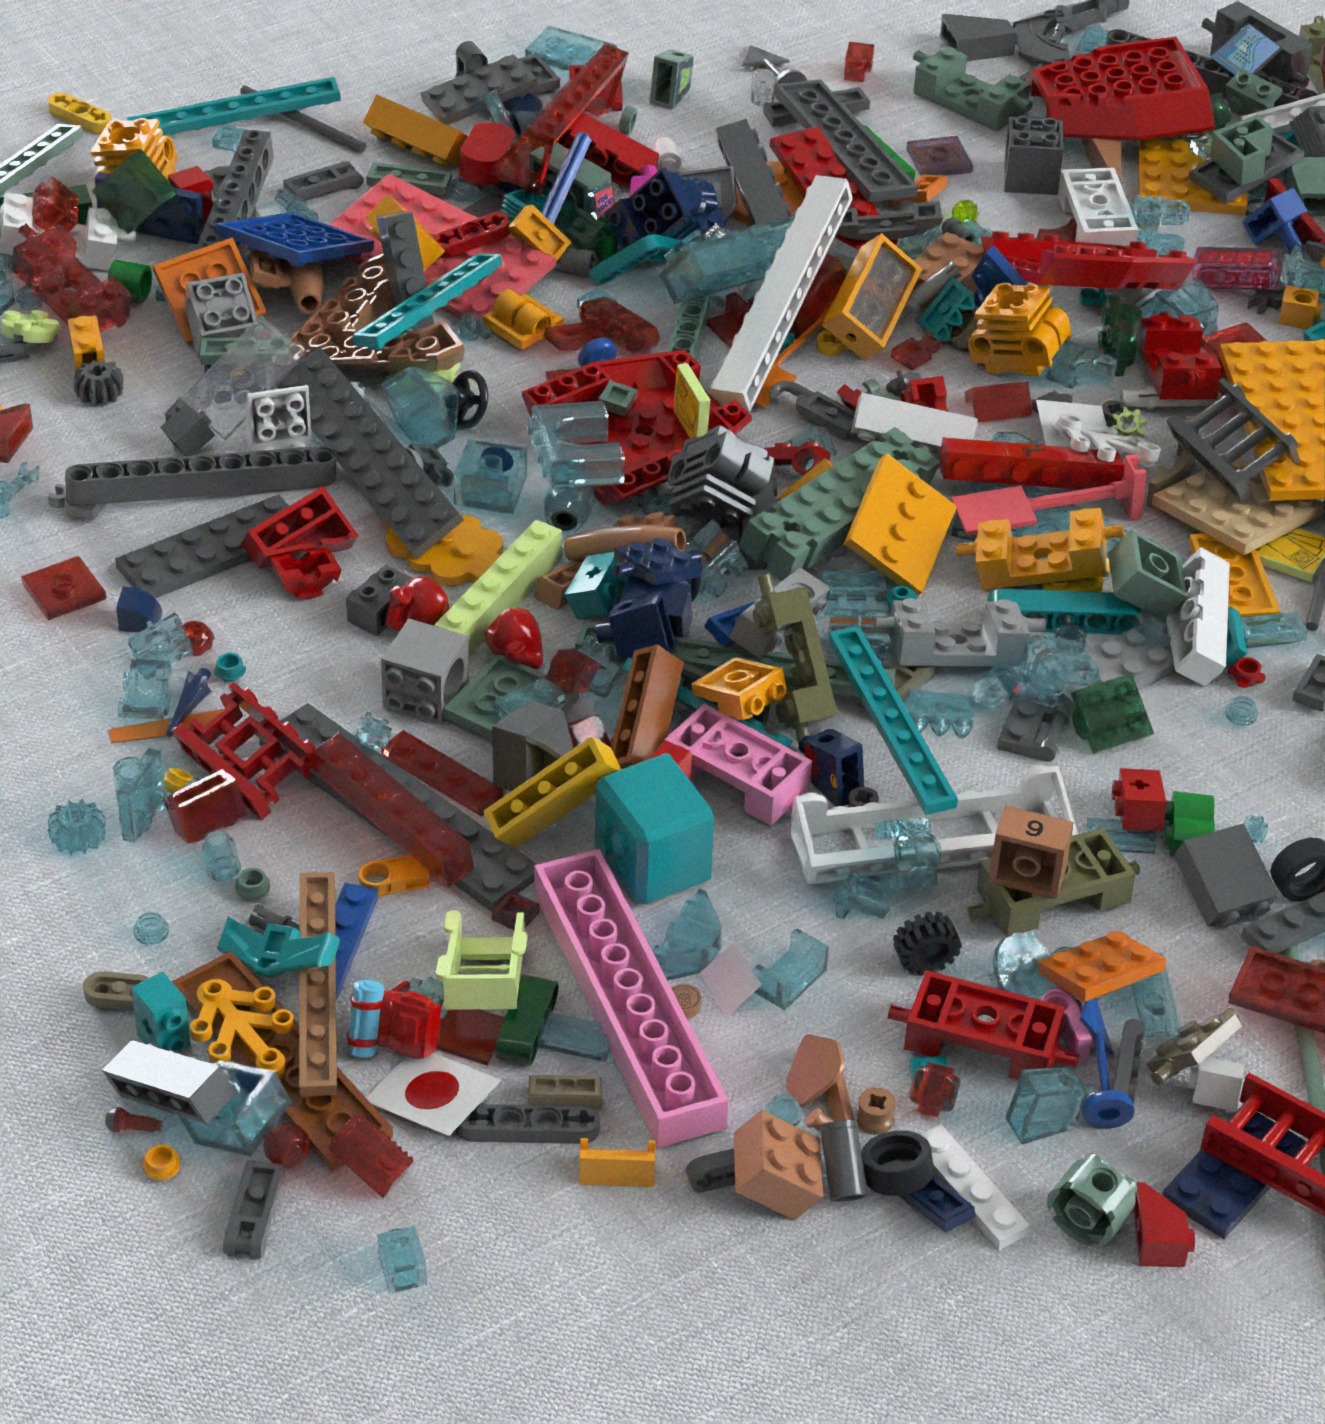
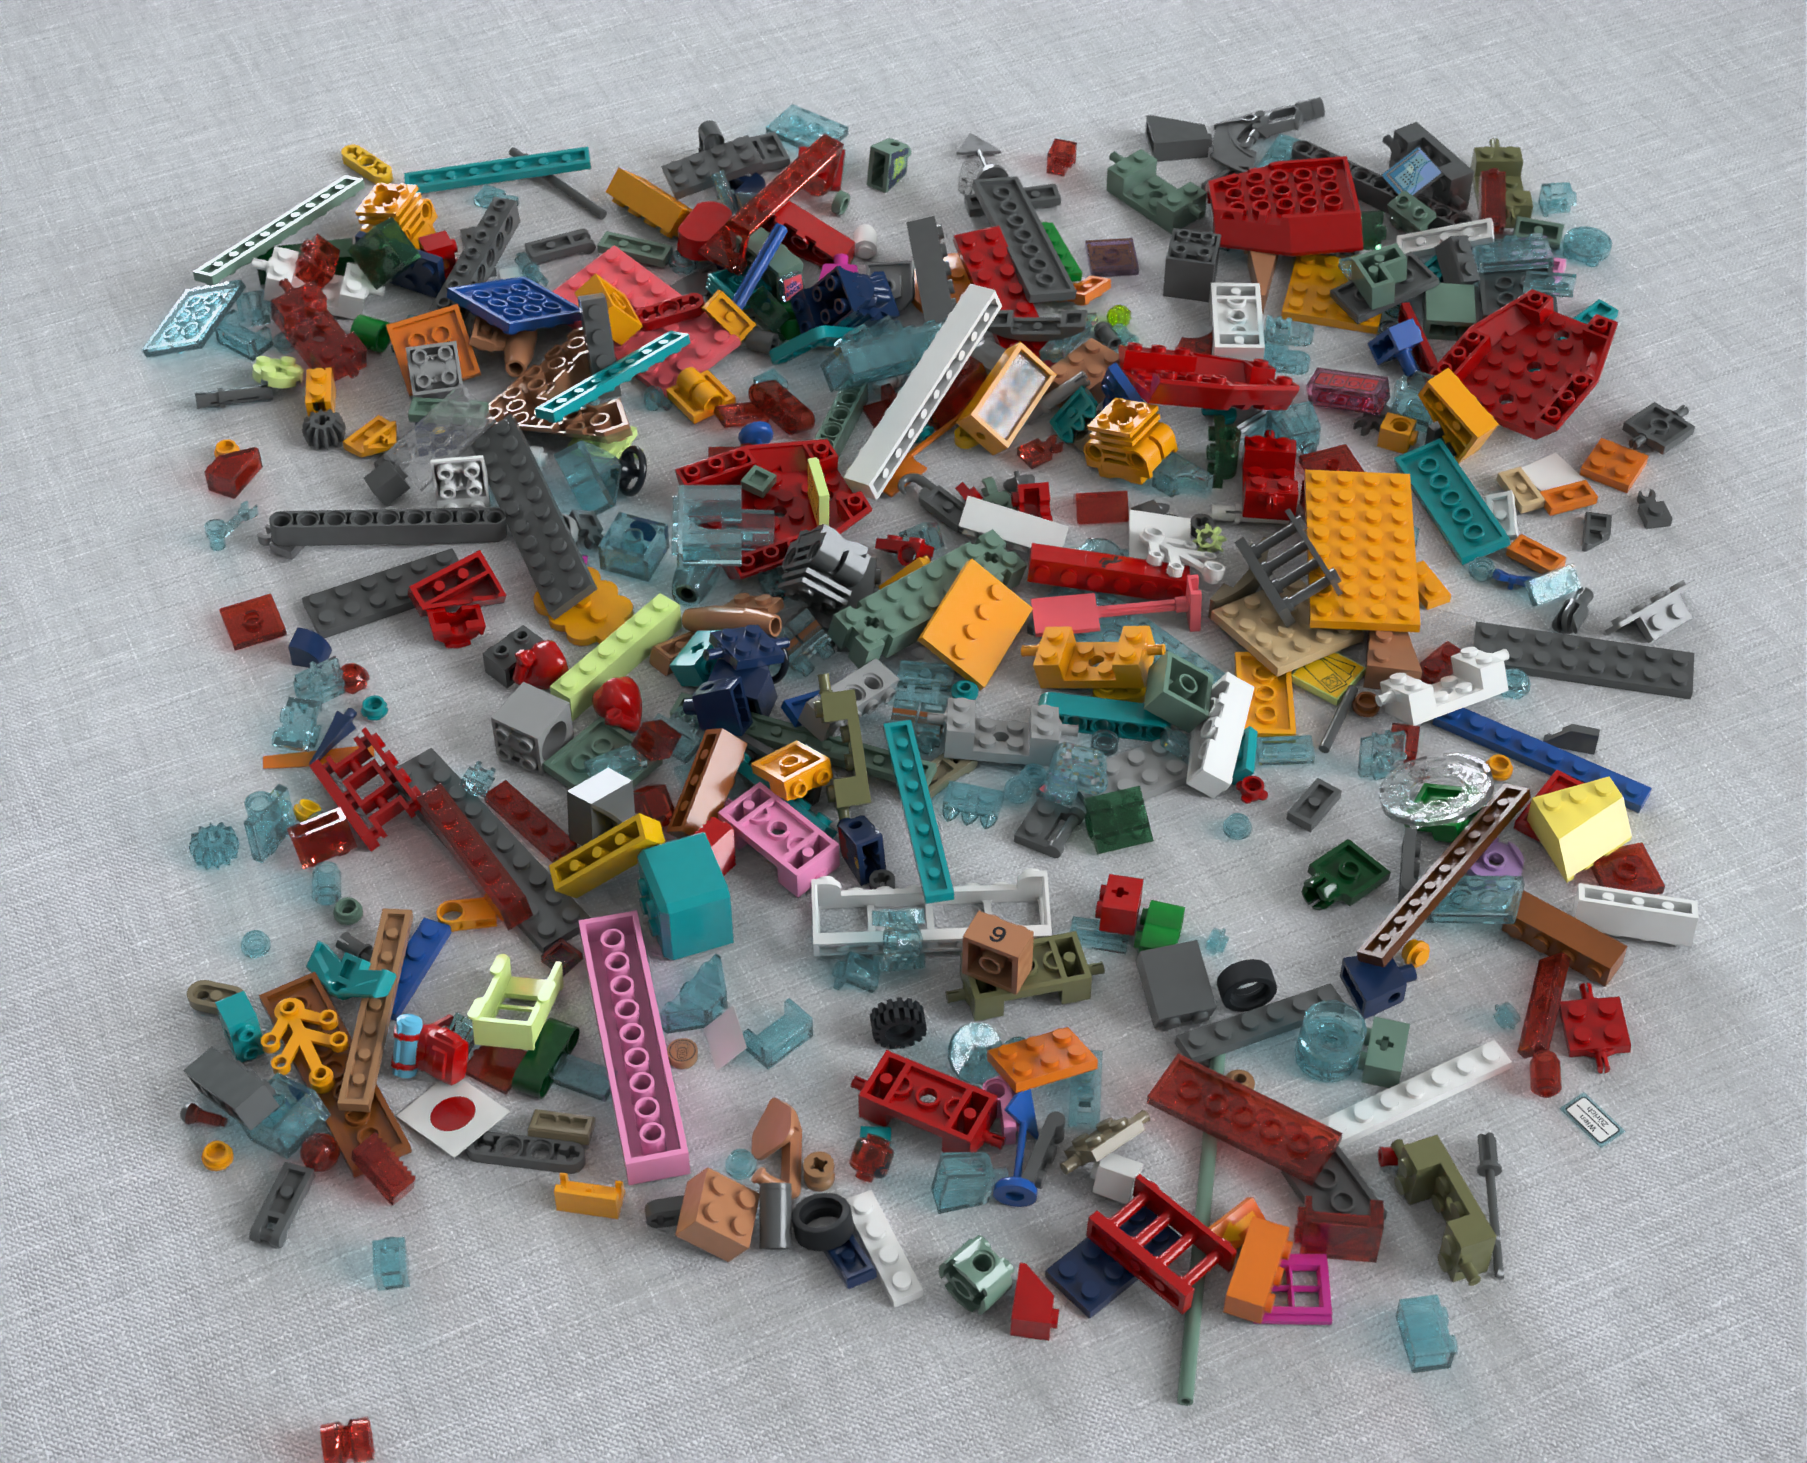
camera: 10 degrees right, 5 degrees up
(156, 388) = (372, 438): none -> light orange slope
(631, 437) = (755, 525): none -> clear light blue panel

